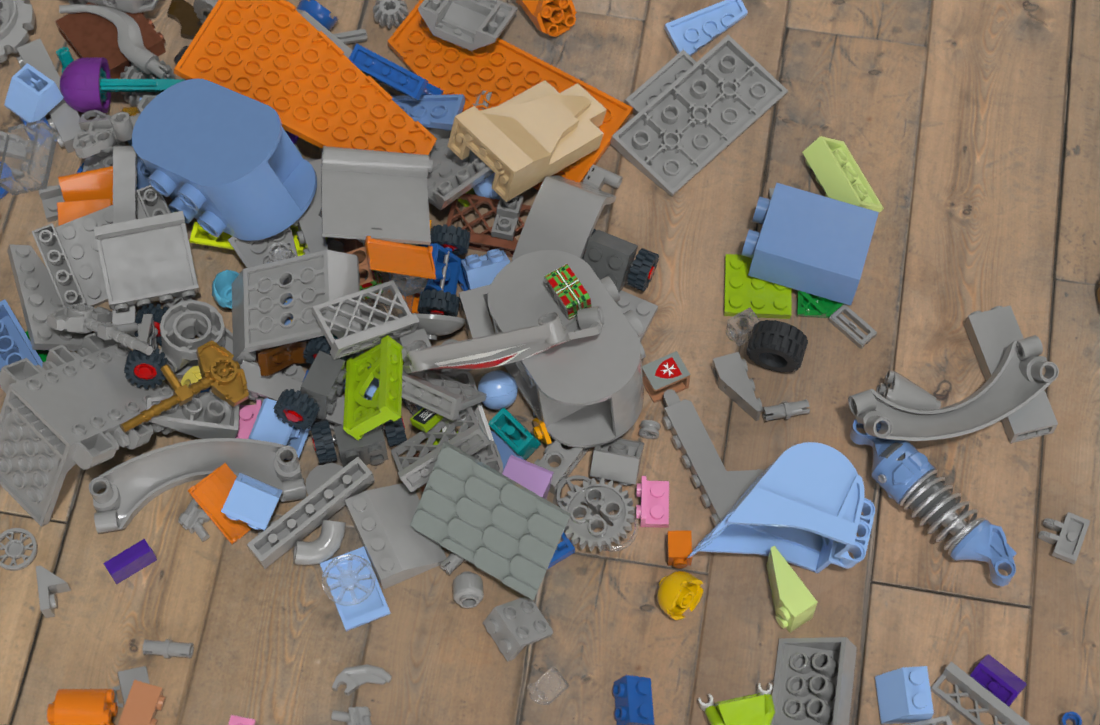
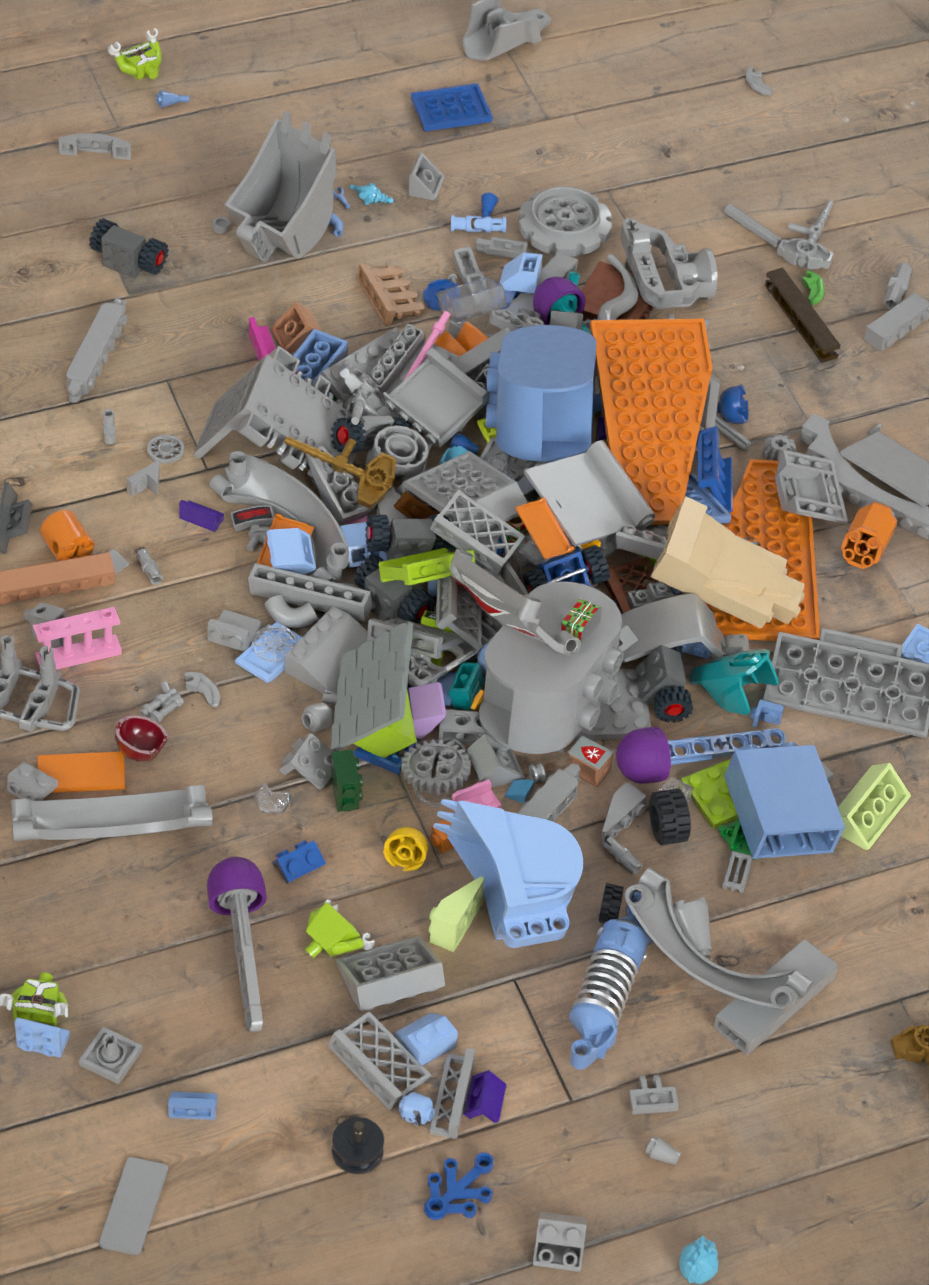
camera: 55 degrees right, 15 degrees down
(57, 209) = (437, 330): none -> bright pink bar
(126, 94) = (566, 319): none -> light grey panel
(167, 513) = (253, 515): none -> slope
(206, 268) = (461, 440): none -> blue cone
(305, 609) = (233, 630): none -> light grey bracket
(570, 606) = (346, 780): none -> dark green brick
(645, 202) = (727, 675): none -> teal piece
(659, 455) = (520, 790): none -> dark azure slope
(691, 199) = (767, 712): none -> medium blue bracket
(700, 323) = (648, 755): none -> piece
(847, 446) = (611, 902): none -> black tyre

